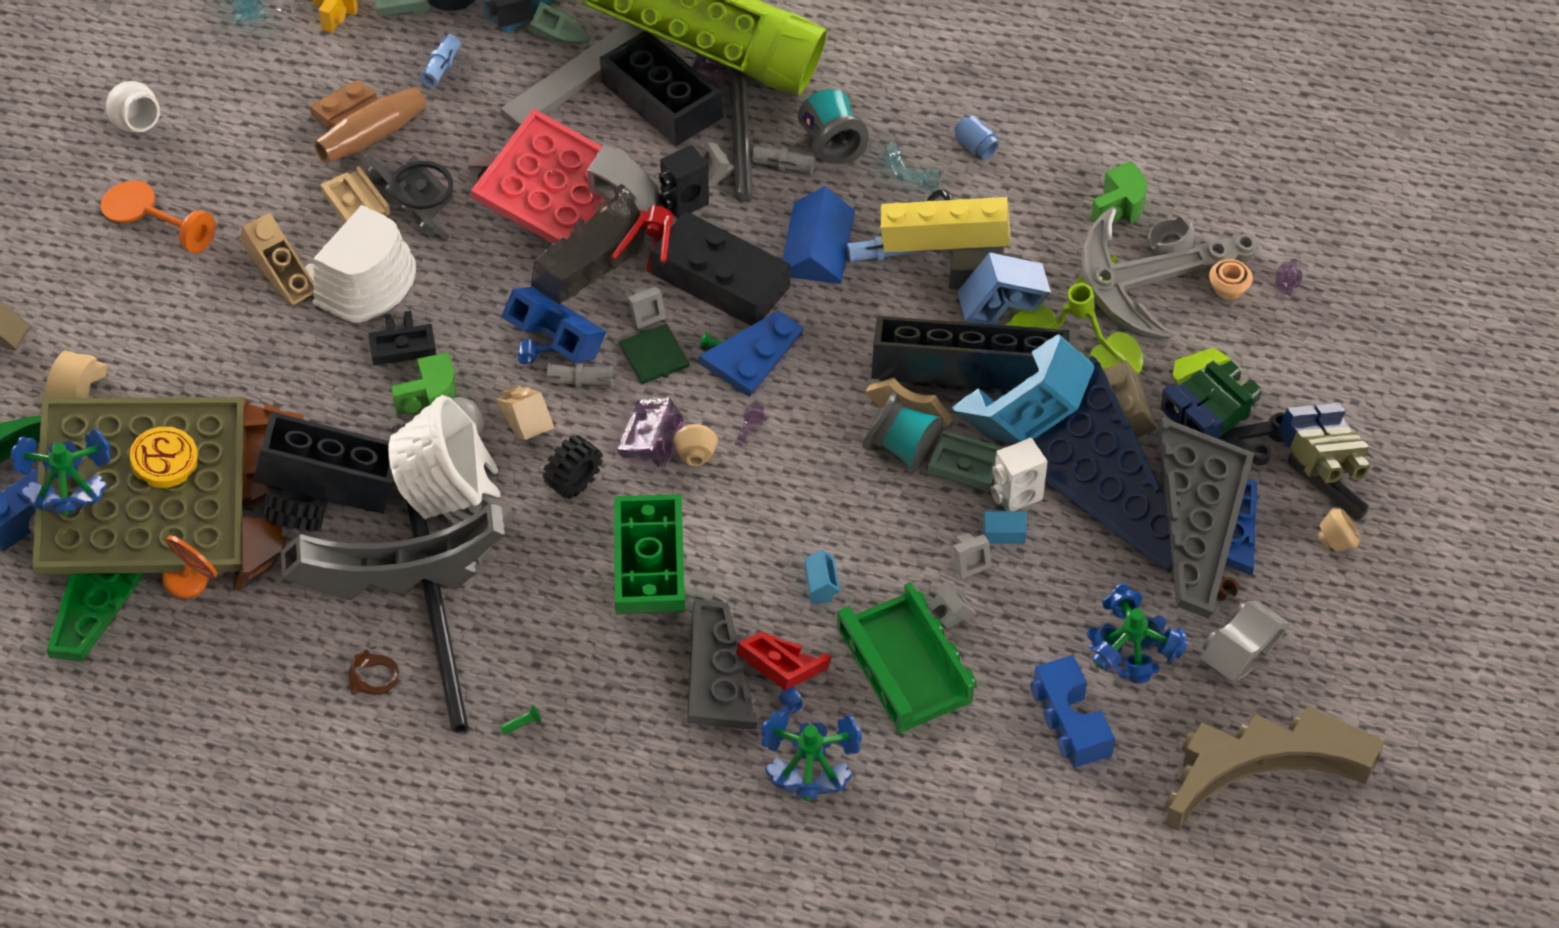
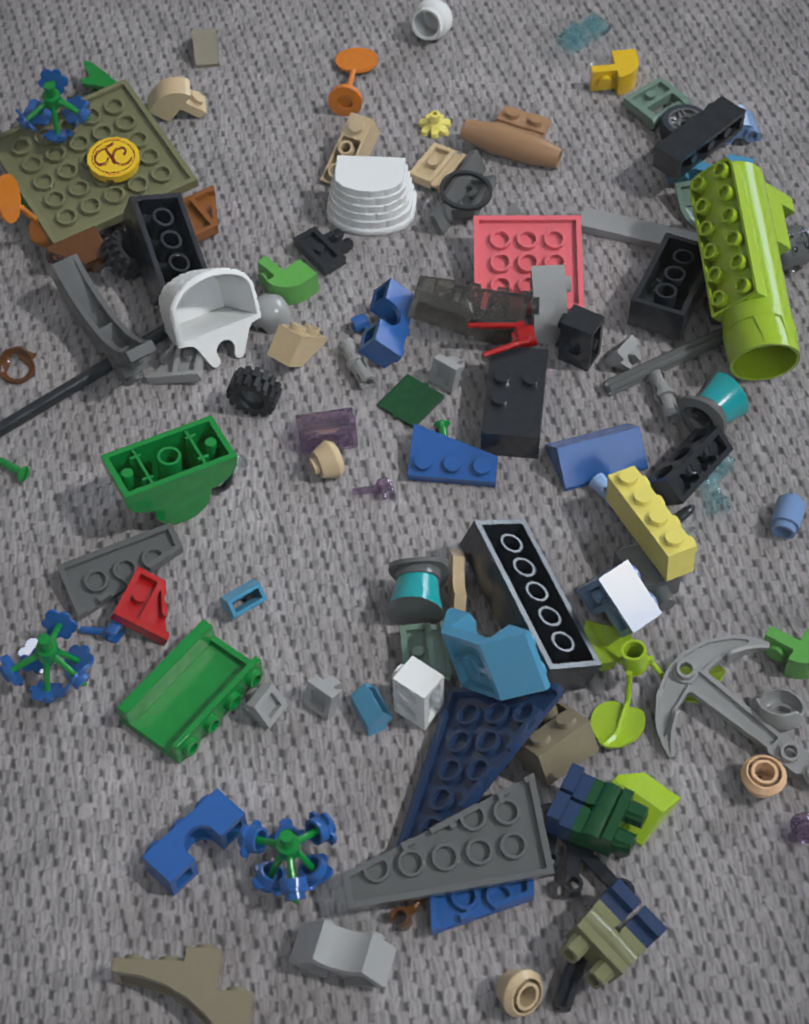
camera: 65 degrees right, 0 degrees up
(284, 176) = (434, 124): none -> light yellow plant
(440, 61) = (604, 154): light blue pin -> none
(881, 170) = (690, 465): none -> black brick

